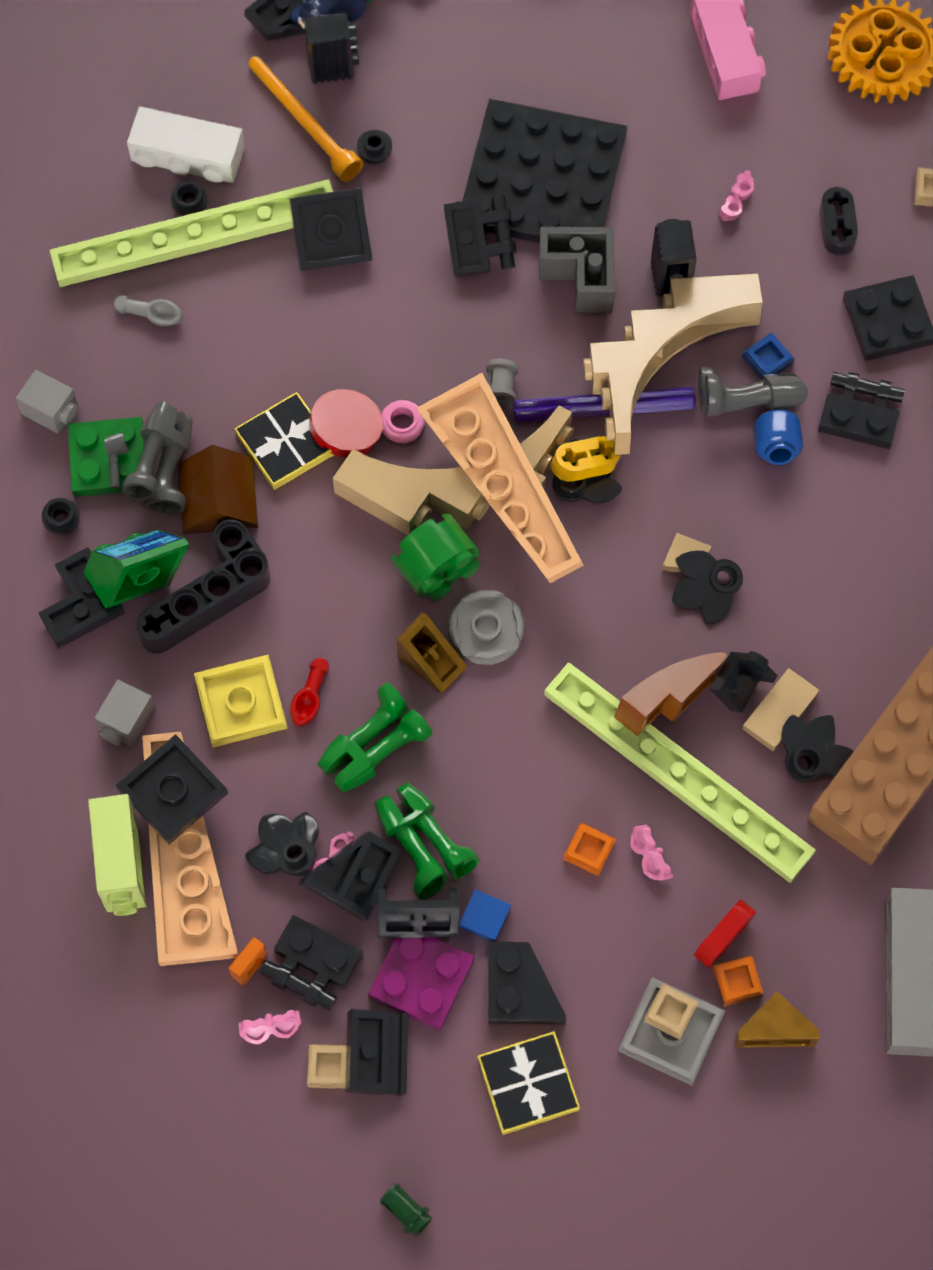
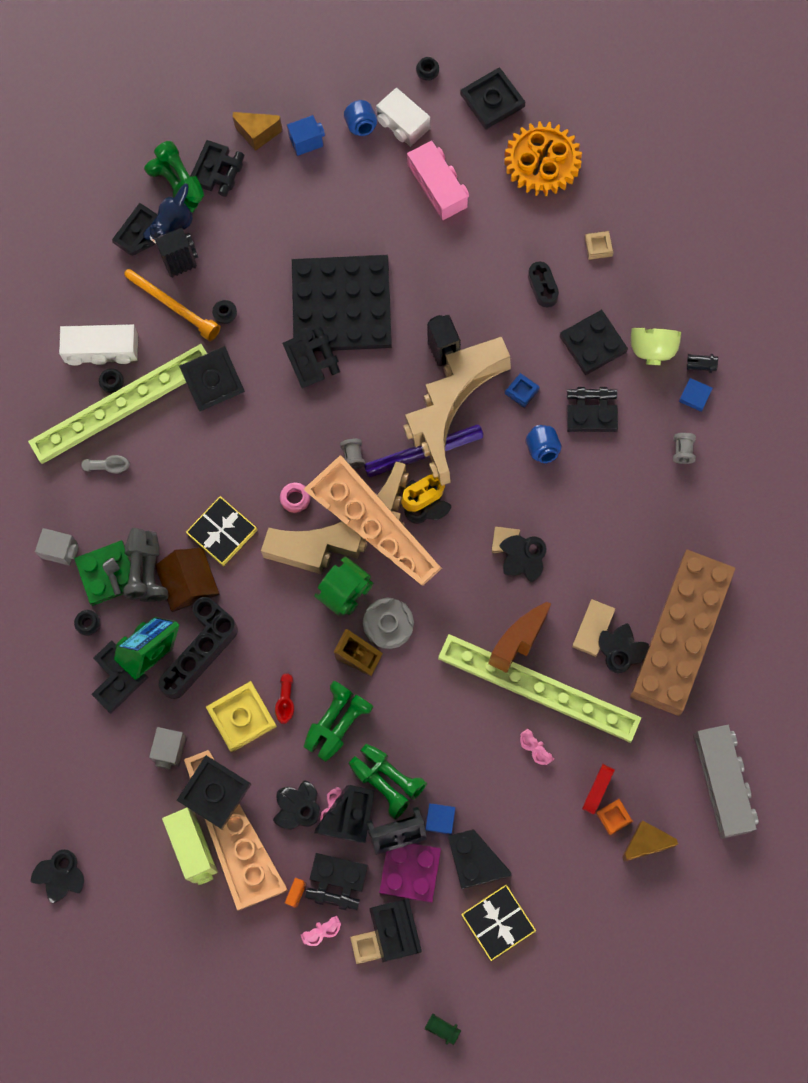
camera: 10 degrees left, 5 degrees up
(345, 422) = (258, 509): tile -> none
(581, 257) = (383, 354): dark grey brick -> none
(589, 849) = (495, 755): orange tile -> none
(664, 1052) = (581, 862): light grey tile -> none
(671, 1011) = (578, 851): tan tile -> none
(739, 192) = (474, 280): bright pink piece -> none
(740, 677) = (562, 615): black bracket -> none
(774, 391) = (533, 413): dark grey piece -> none

